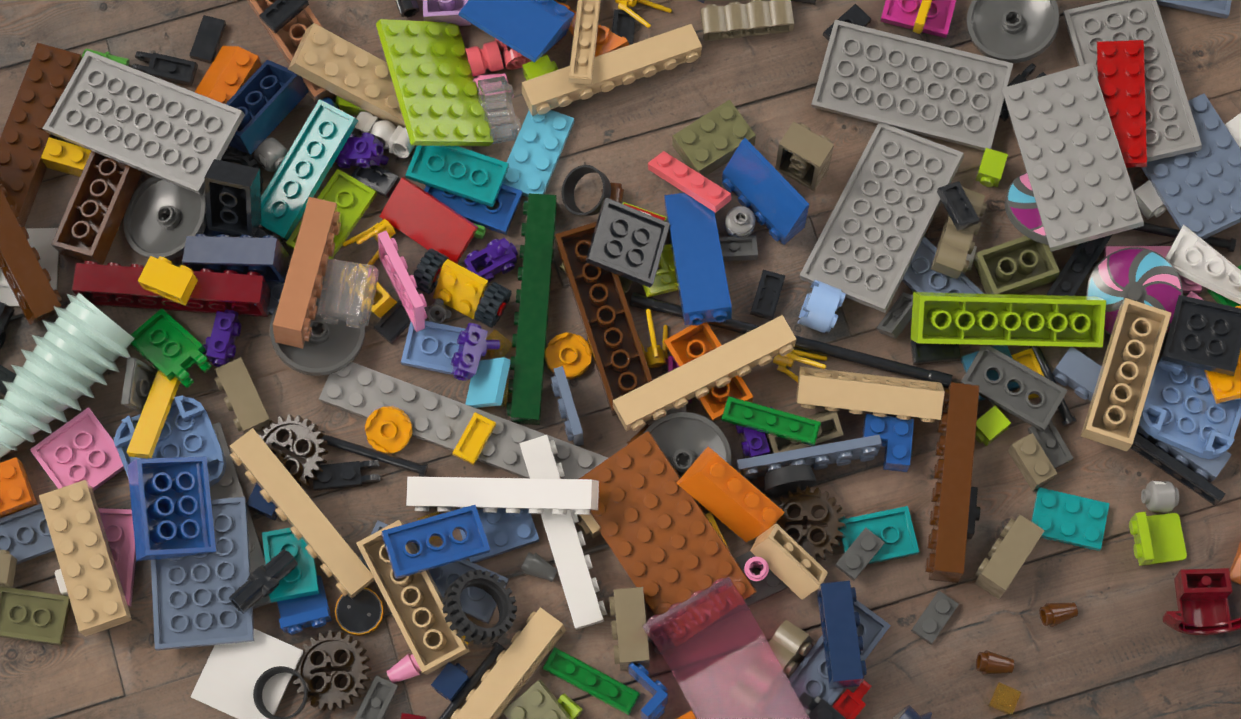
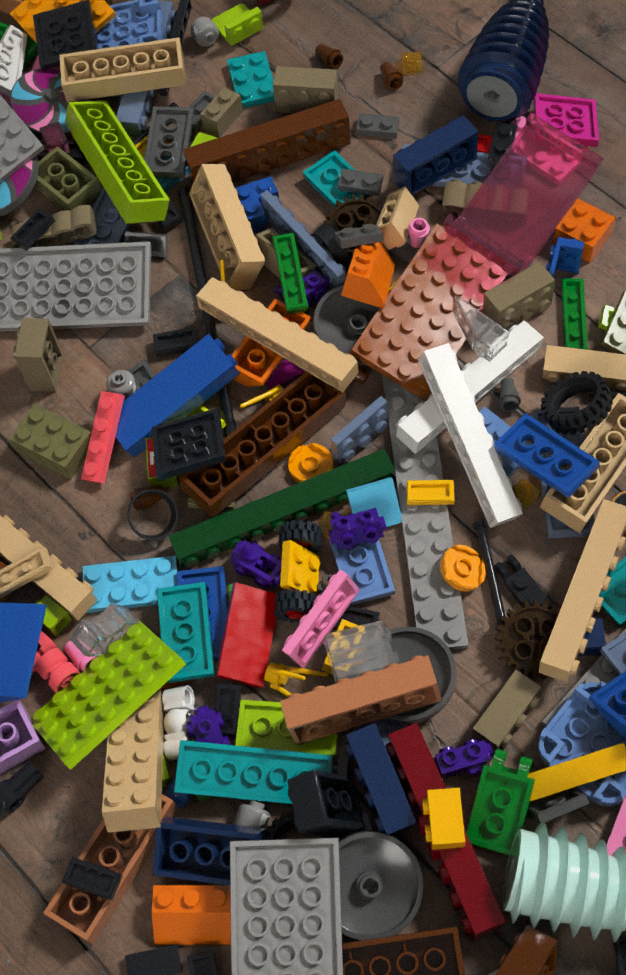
camera: 110 degrees left, 10 degrees down
(601, 561) = (481, 332): none -> clear slope
(765, 193) = (84, 371): blue slope -> none
(769, 498) = (359, 236): none -> dark grey plate
(820, 307) = (168, 293): light blue brick -> none
(1074, 274) = (53, 136): none -> clear pink brick

